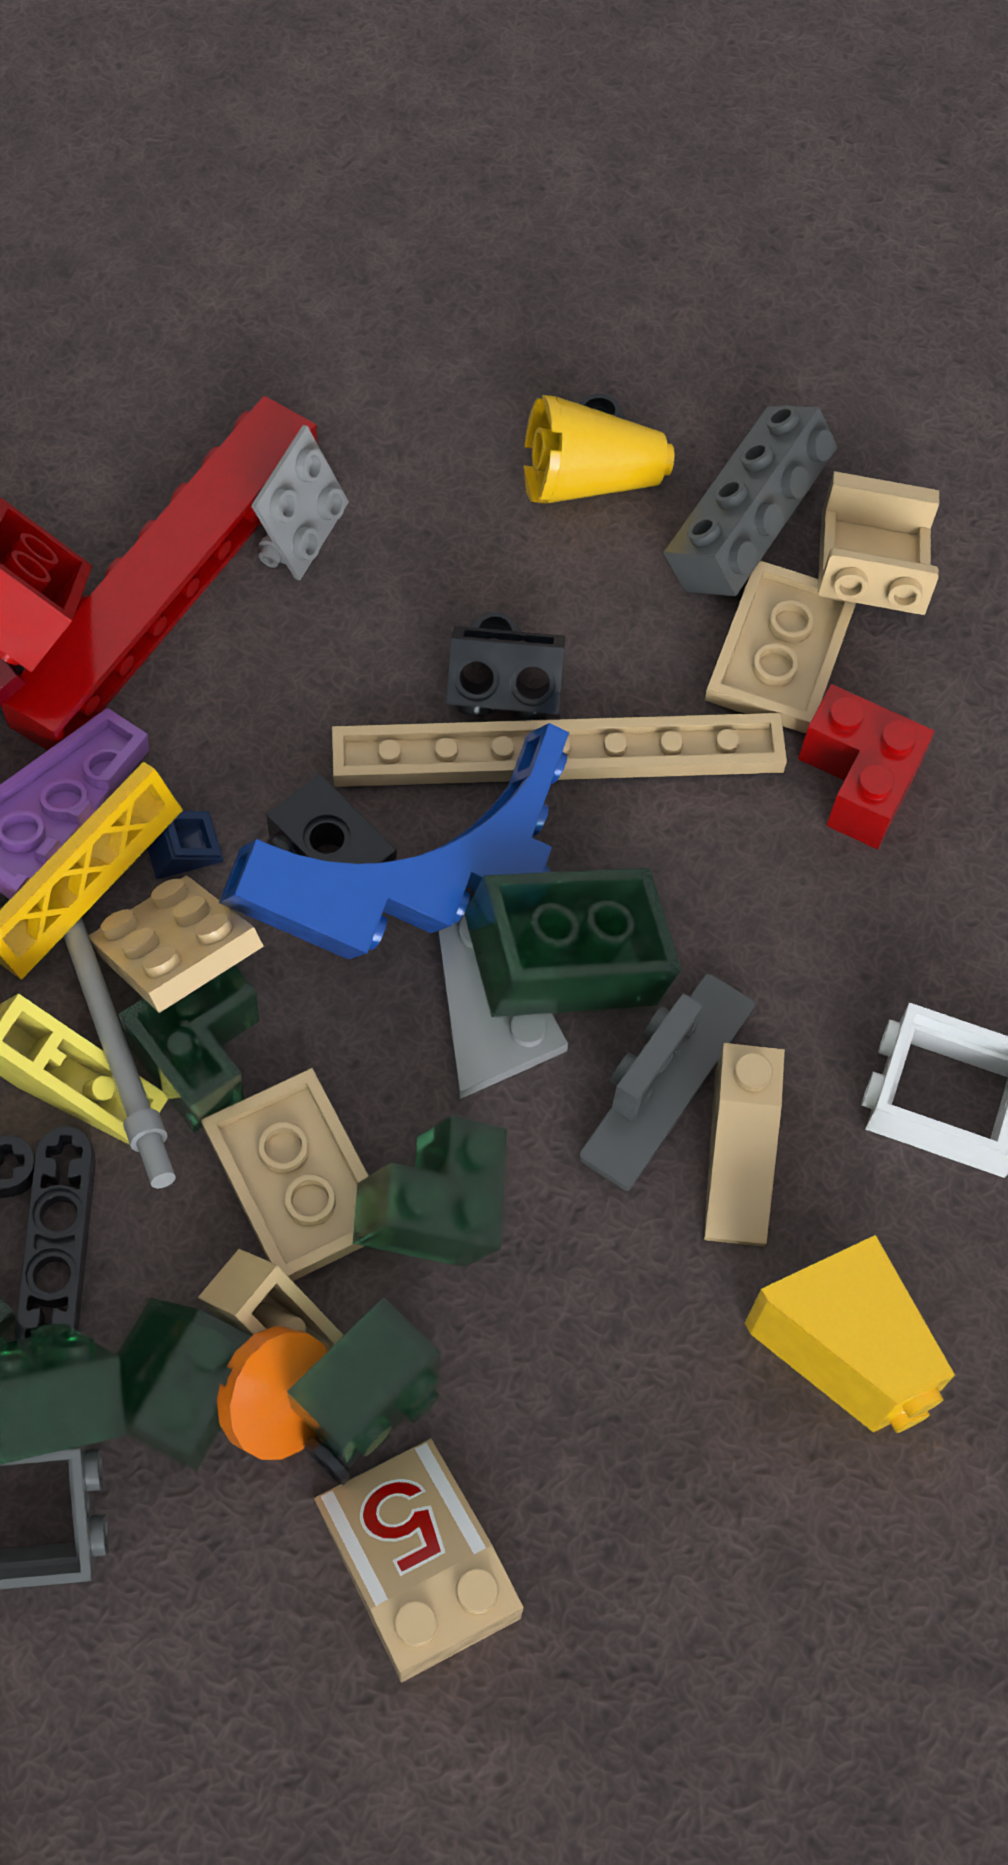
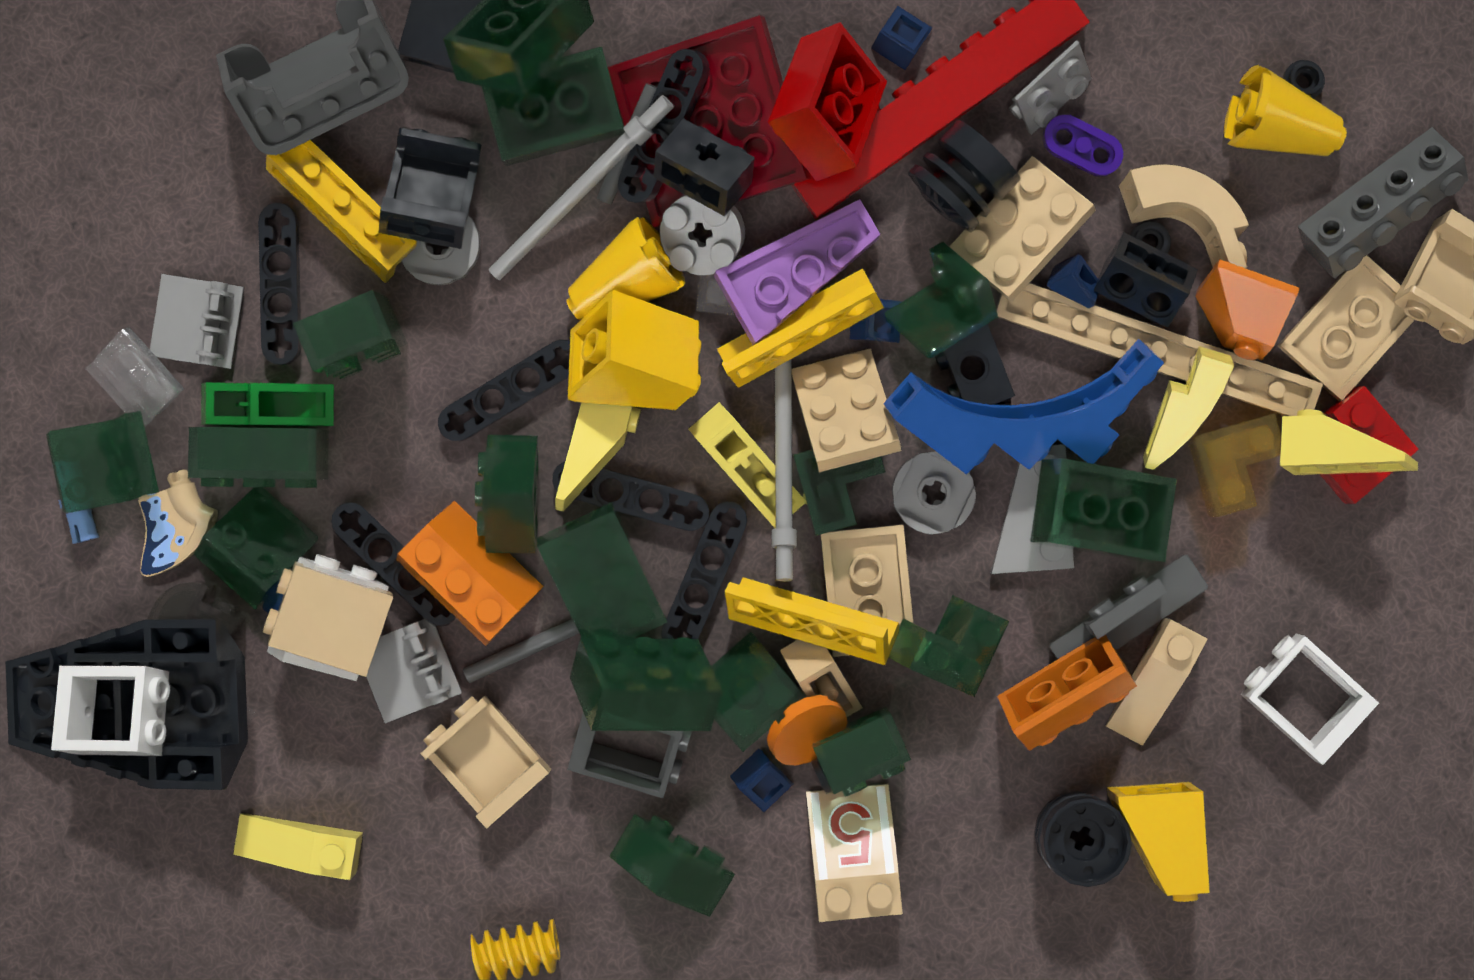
camera: 25 degrees right, 25 degrees up
(97, 529) = (901, 37): none -> dark blue slope
(142, 1680) = (672, 864): none -> clear green brick
(222, 1227) = (811, 620): none -> yellow fence
(227, 625) = (961, 179): none -> black wheel
(241, 1507) = (761, 780): none -> dark blue slope
(279, 760) = (946, 309): none -> clear green bracket
(327, 671) = (1024, 229): none -> tan plate
(339, 1051) = (911, 502): none -> light grey plate
(366, 561) = (1083, 143): none -> dark purple plate
(421, 704) = (1074, 281): none -> dark blue slope
(527, 572) = (1190, 198): none -> tan arch
(624, 782) = (1187, 405): none -> light yellow slope
(631, 1196) = (1066, 692): none -> orange slope
(640, 649) = (1245, 308): none -> orange slope
(703, 835) = (1222, 459): none -> clear yellow brick
(767, 1367) = (1090, 861): none -> black wheel
(836, 748) = (1325, 446): none -> light yellow slope

